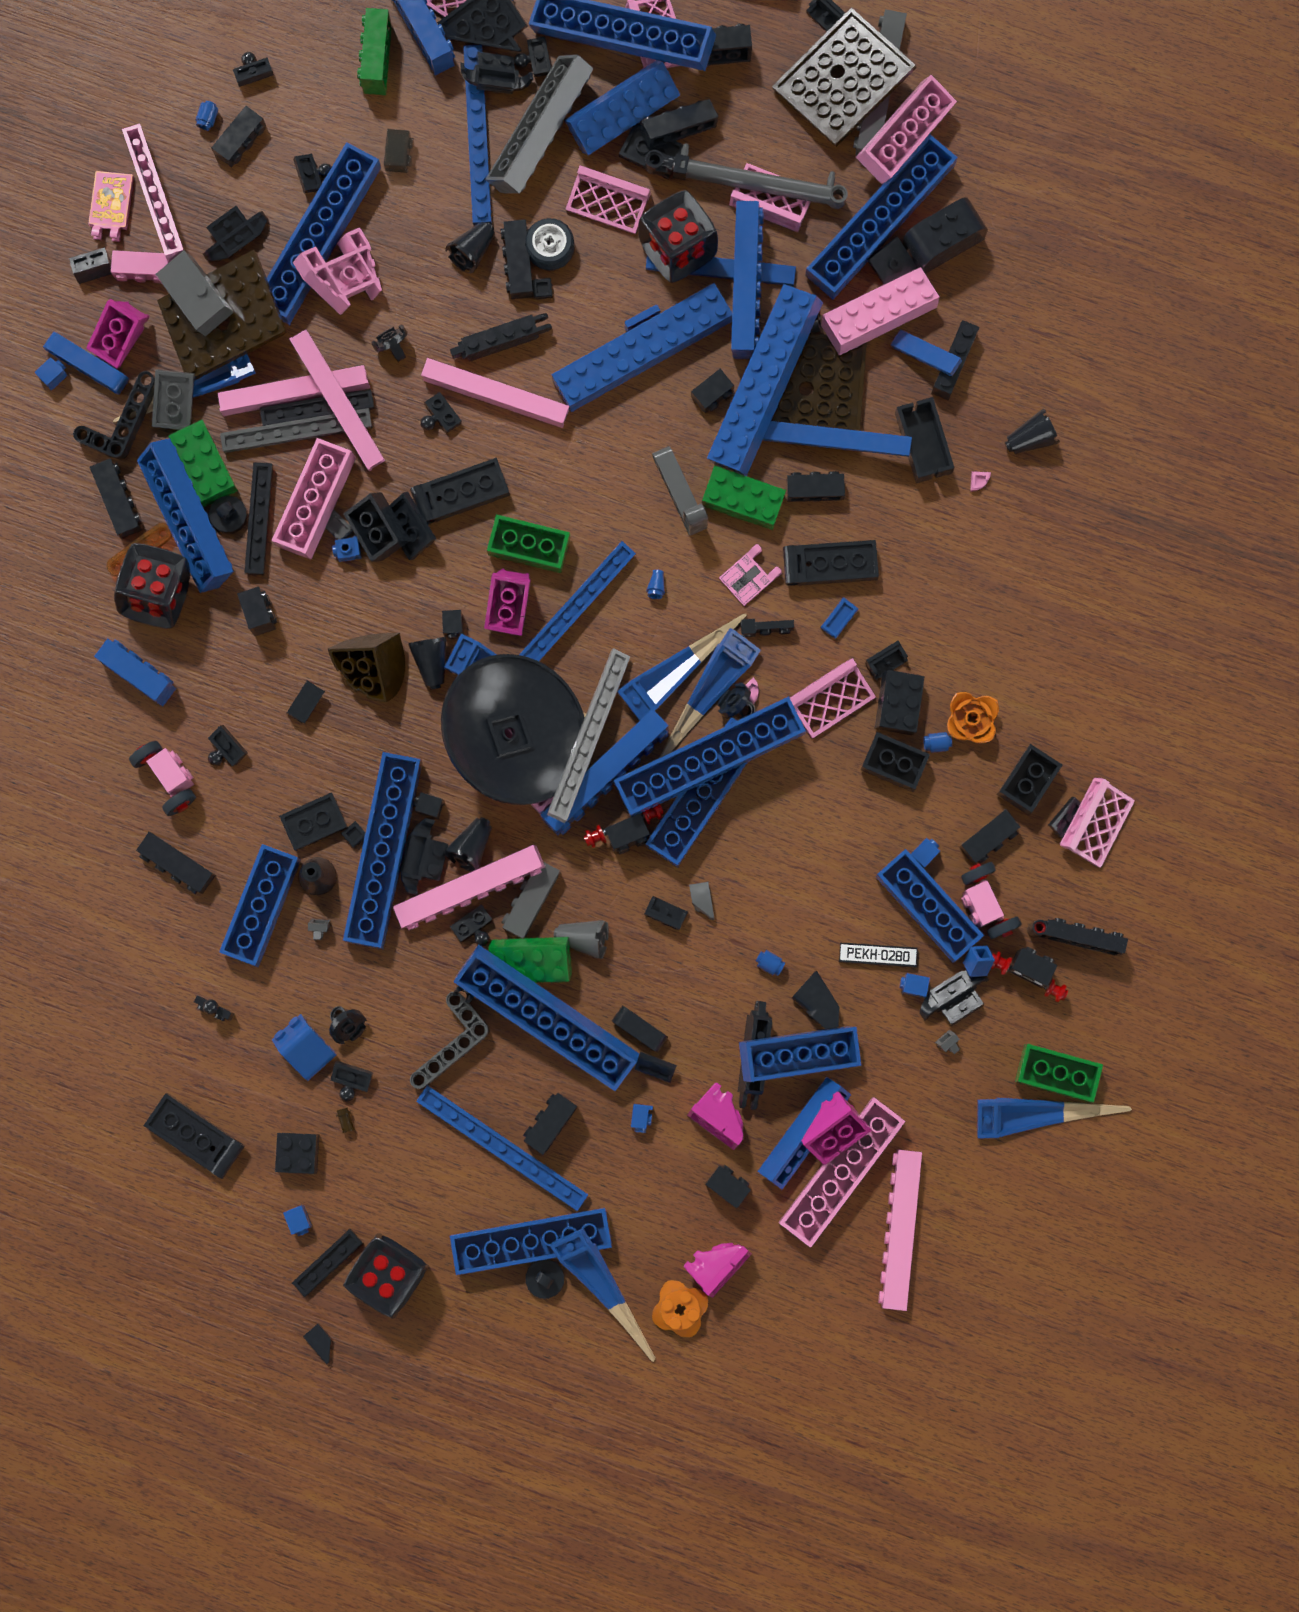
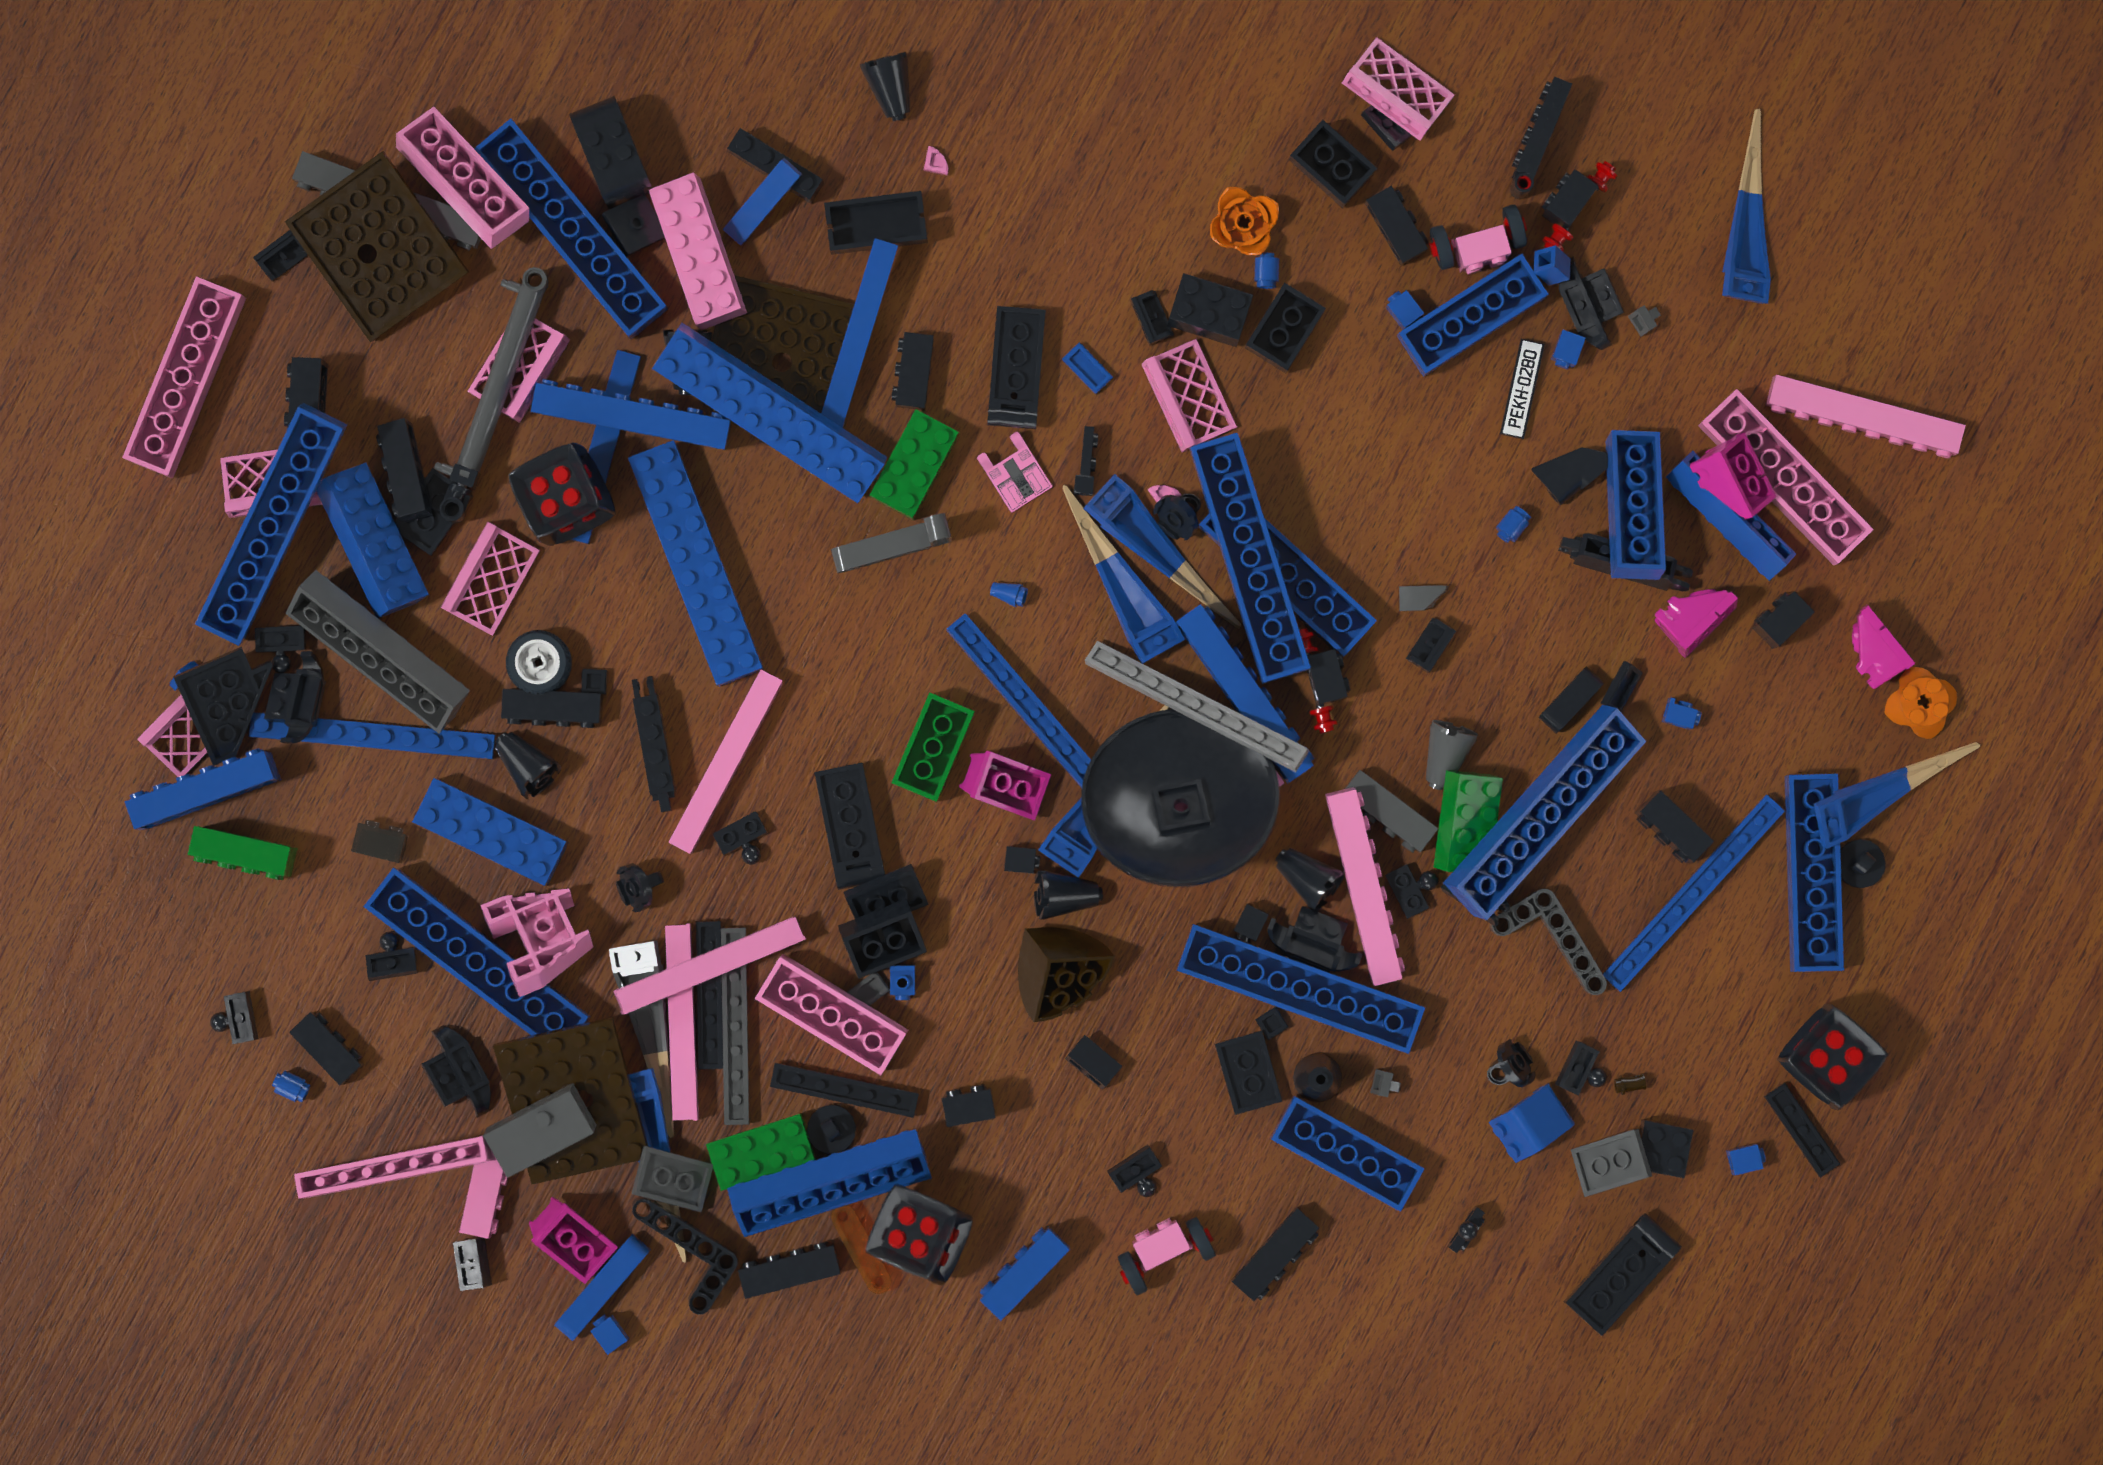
camera: 85 degrees left, 5 degrees up
(110, 204) = (390, 1229): bright pink tile -> none
(279, 1113) = (1611, 1162): none -> dark grey plate
(319, 1341) = (1897, 1152): black tile -> none
(331, 346) = (649, 1022): none -> dark grey plate
(416, 229) = (490, 832): none -> blue brick
(641, 317) = (656, 557): blue tile -> none
(712, 391) = (767, 482): black brick -> none
(1059, 1073) = (1703, 190): green brick -> none

